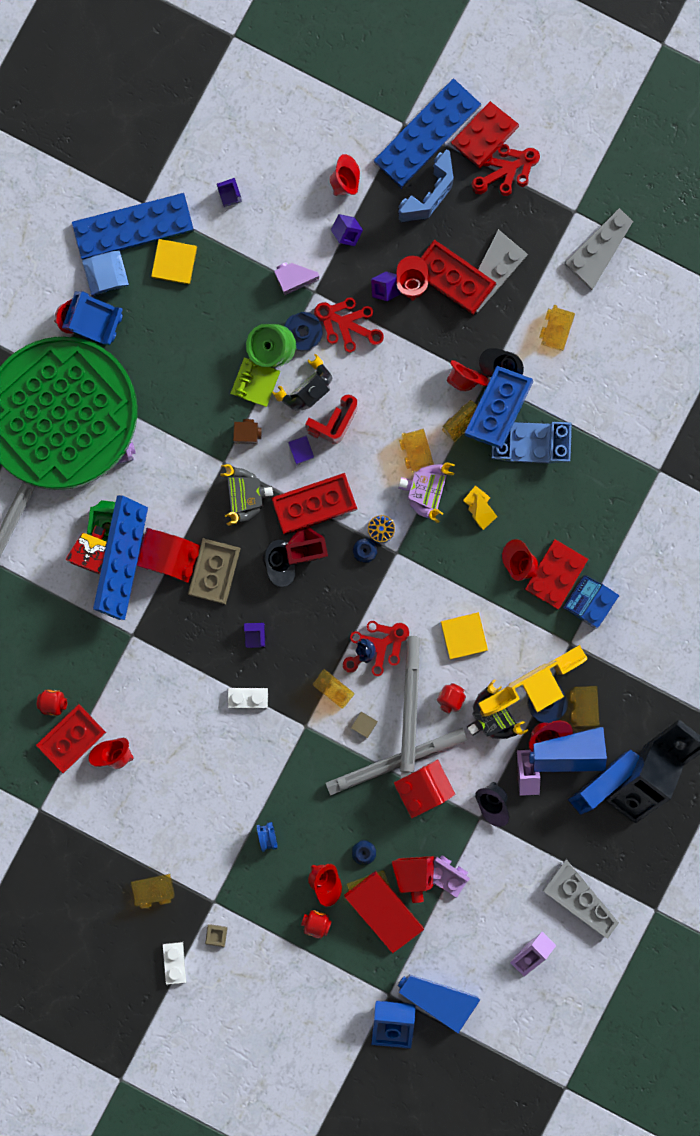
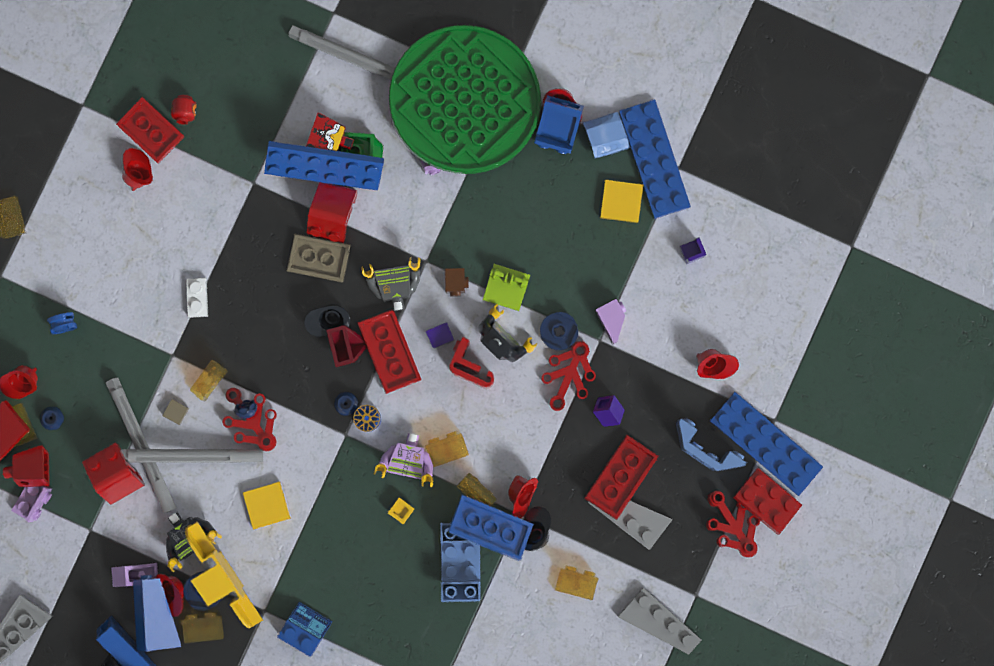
camera: 90 degrees right, 0 degrees up
(254, 635) = (258, 301): dark purple panel -> none
(270, 345) = (541, 299): bright green wheel -> none
(346, 230) = (662, 368): dark purple panel -> none
(412, 276) = (618, 435): red piece -> none
(451, 698) = (203, 495): red head -> none
(481, 511) = (388, 516): yellow slope -> none
(492, 804) = (102, 541): black piece -> none
(519, 560) = (341, 555): red piece -> none
(556, 574) = (331, 593): red plate -> none

